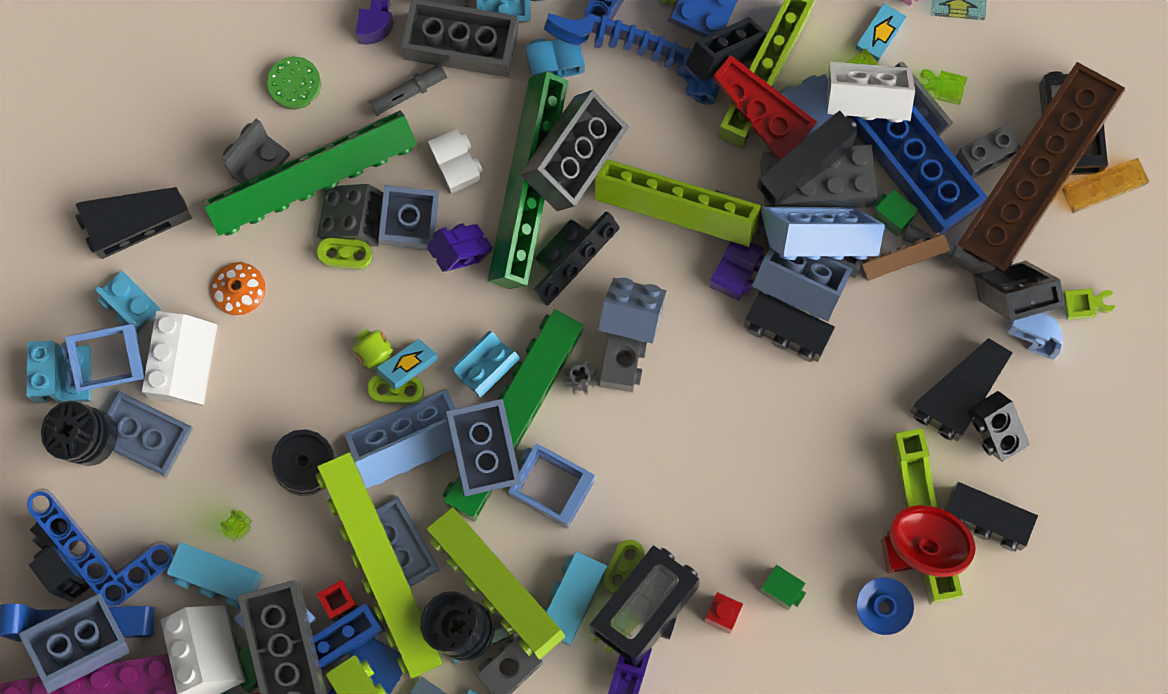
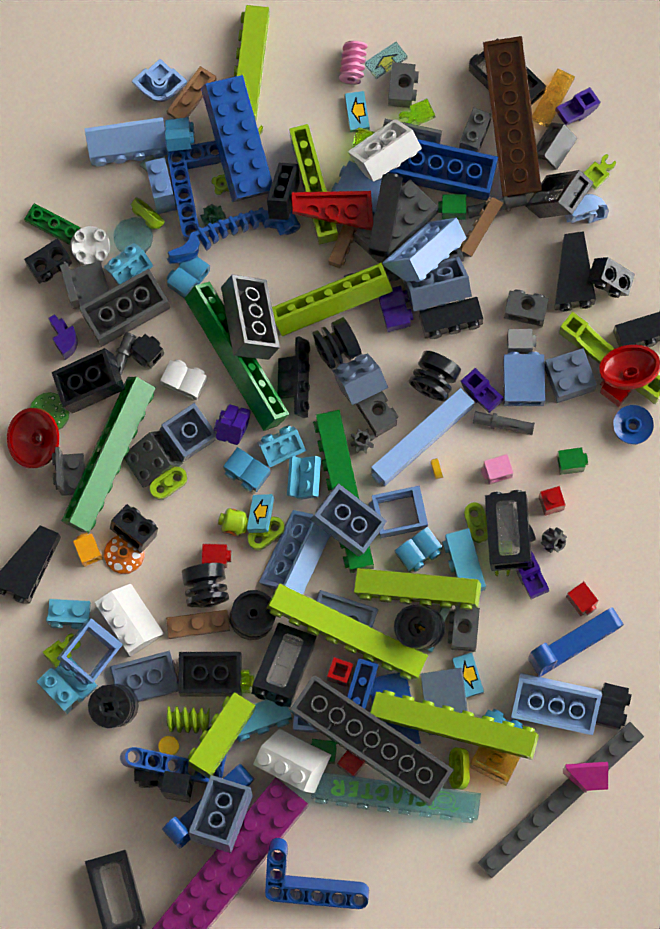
camera: 40 degrees left, 0 degrees up
(76, 326) = (55, 649): none -> lime plate
(101, 524) = (169, 745): none -> yellow tile
(140, 515) = (187, 720): none -> lime piece
(152, 560) = (221, 735): none -> lime brick
(203, 252) = (87, 549): none -> light orange brick
(204, 485) = (209, 674): none -> black brick
(243, 423) = (198, 624): none -> medium nougat plate
(250, 92) = (25, 434): none -> red dish
(260, 269) = (130, 531): none -> black brick
(282, 389) = (206, 589): none -> black wheel
(285, 543) = (283, 665): none -> black piece
(323, 368) = (216, 554): none -> red brick
(355, 80) = (88, 380): none -> black brick
(434, 307) = (247, 470): none -> dark azure brick
(444, 100) = (147, 351): none -> black brick
(492, 312) = (281, 445): none -> medium azure bracket
(536, 543) = (418, 550): none -> dark azure brick
(631, 473) = (436, 468): none -> yellow tile
(634, 15) = (212, 214): none -> clear green gear
(641, 252) = (335, 344): none -> black wheel
(645, 427) = (422, 437): none -> light blue brick
(688, 656) = (553, 540): none -> dark grey gear
(694, 528) = (497, 469): none -> bright pink brick
(714, 373) = (435, 375): none -> black wheel
(739, 158) = (342, 245): none -> medium nougat piece
(752, 430) = (481, 391): none -> dark purple brick
(753, 494) = (503, 423): none -> dark grey pin
(808, 457) = (524, 379): none -> medium blue brick
(841, 413) = (520, 340): none -> light grey brick
(862, 495) = (570, 375): none -> sand blue brick
(880, 399) = (533, 316): none -> dark grey brick
(959, 28) = (402, 74): none -> dark grey brick
(1064, 236) = (555, 144): none -> panel
(1123, 217) = (579, 107): none -> dark purple brick

